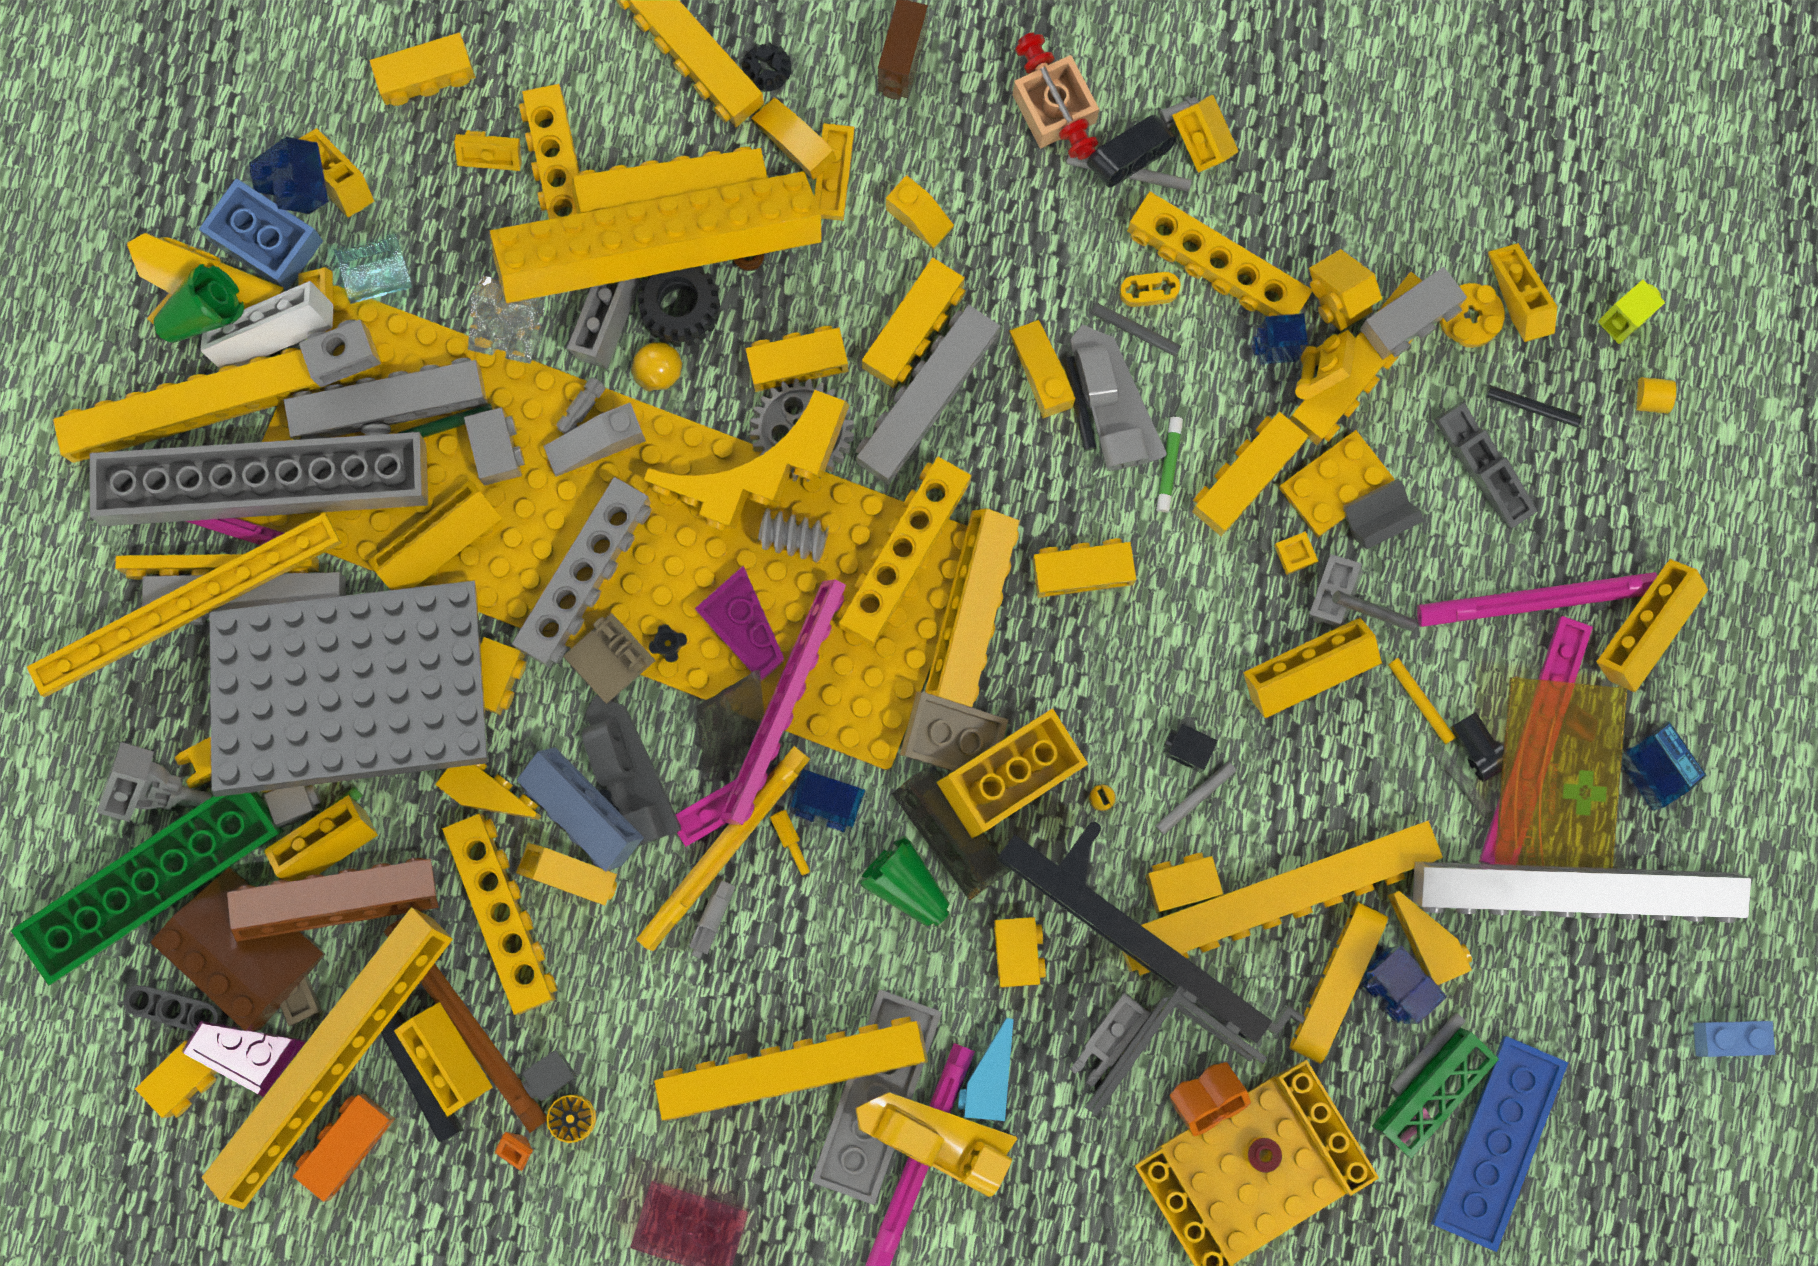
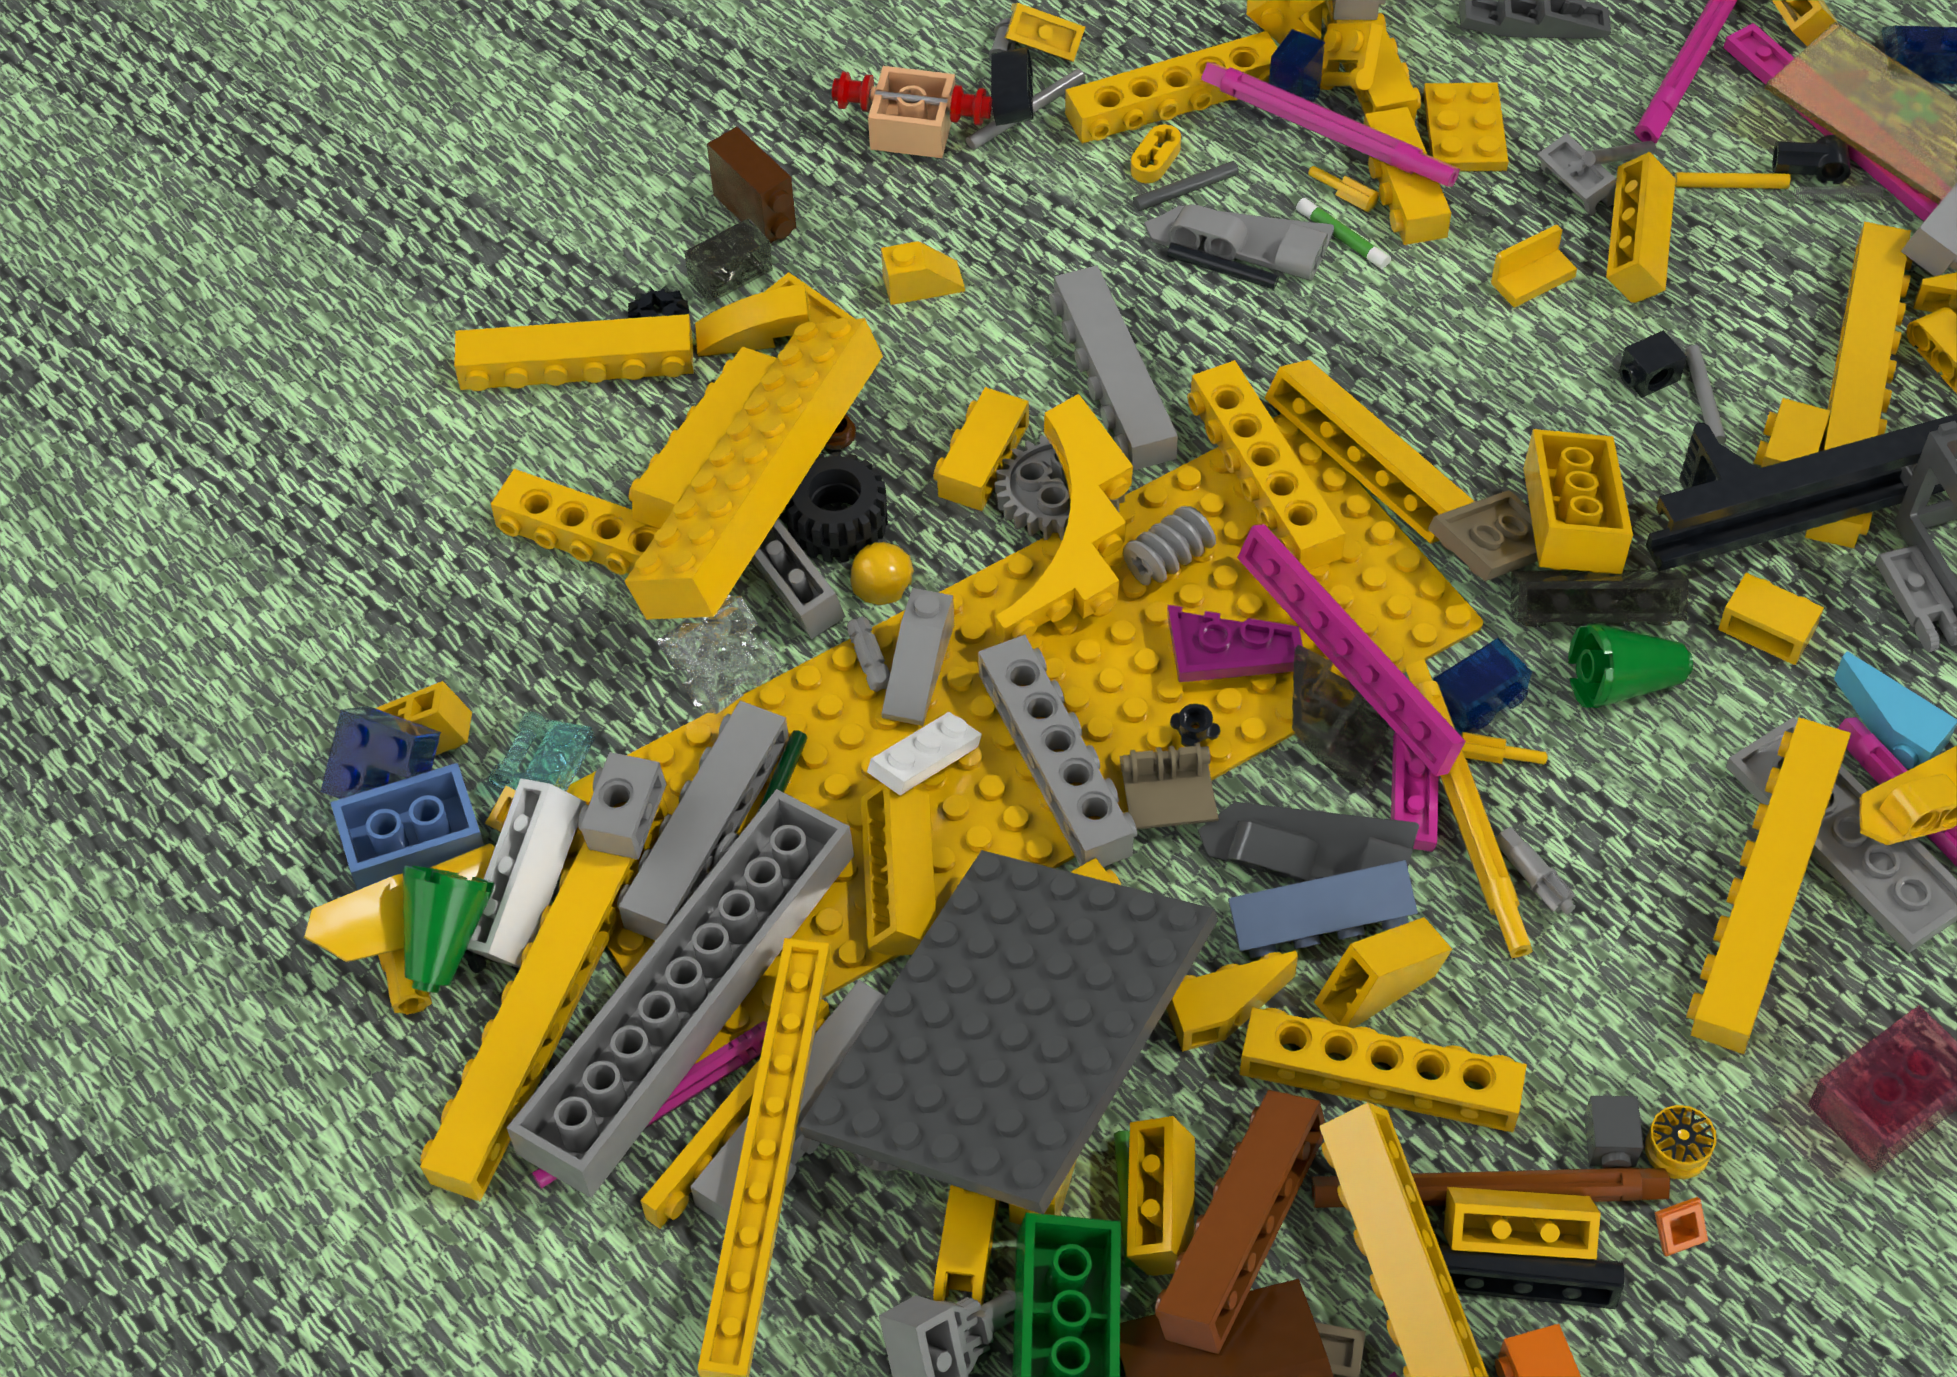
camera: 50 degrees left, 25 degrees down
(292, 804) = (1088, 1193): light grey brick -> none
(422, 69) = (376, 584): yellow brick -> none
(487, 152) = (520, 579): yellow hinge -> none
(494, 446) = (840, 749): light grey brick -> none
(519, 497) = (924, 753): none -> white plate
(834, 80) = (728, 260): none -> clear smoke brick
(913, 323) = (1030, 337): yellow brick -> none
(1042, 369) = (1170, 267): yellow slope -> none
(1084, 568) = (1397, 345): yellow brick -> none
(1095, 799) = (1649, 465): yellow hinge -> none
(1213, 441) = (1347, 189): none -> yellow axle
(1225, 616) = (1532, 267): none -> yellow panel
(1242, 396) = (1329, 124): none -> dark pink piece
(1296, 553) = (1511, 187): yellow plate -> none
(1381, 514) = (1526, 109): dark grey panel -> none

